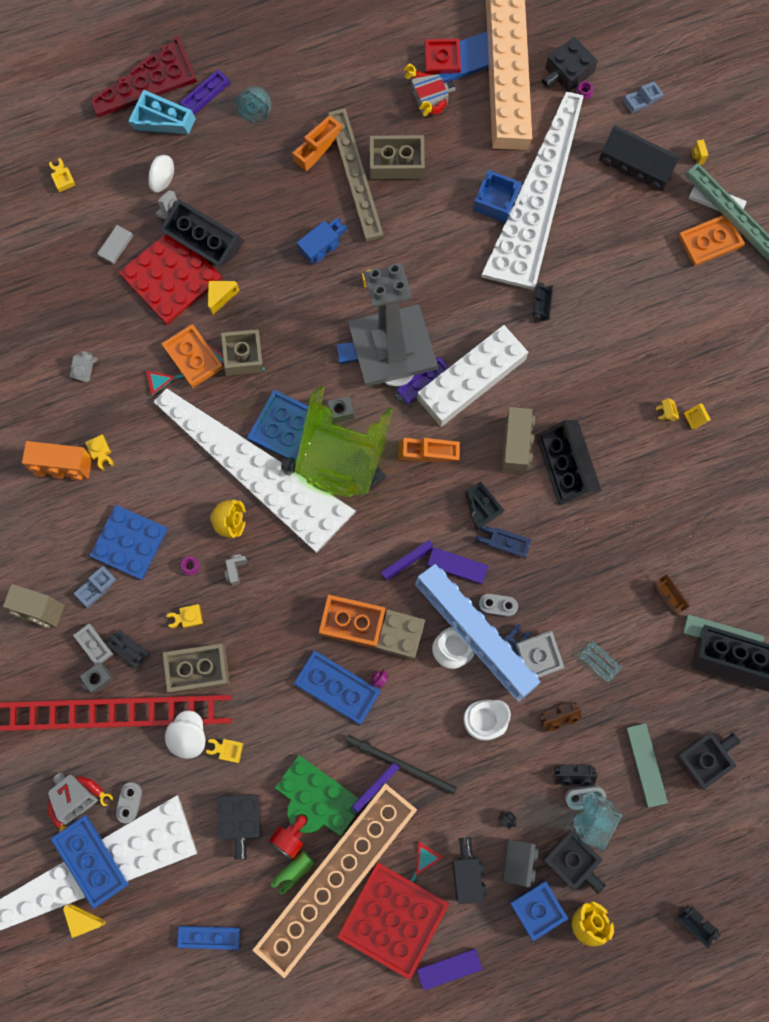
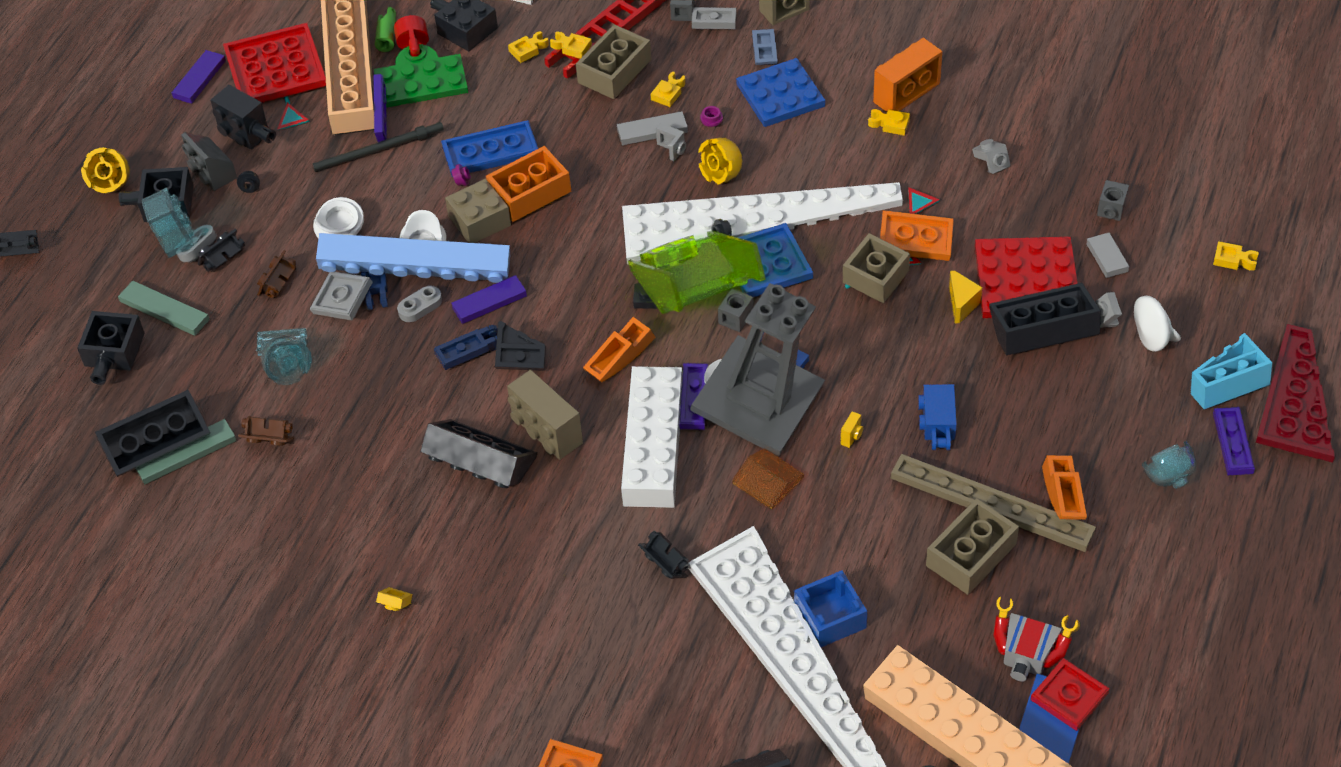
camera: 135 degrees right, 25 degrees down
(61, 265) = (1113, 200): none -> dark grey brick
(127, 648) = (678, 37): black hinge -> none
(186, 735) = (568, 23): white piece -> none
(205, 706) = (573, 45): none -> yellow plate
(231, 596) = (645, 129): none -> light grey tile
(407, 560) = (536, 262): dark purple tile -> none
(439, 299) = (767, 477): none -> clear orange slope
(538, 910) = (159, 145): blue container -> none
(615, 638) = (285, 359): none -> clear light blue cylinder
(670, 410) = (428, 579): yellow tile -> none

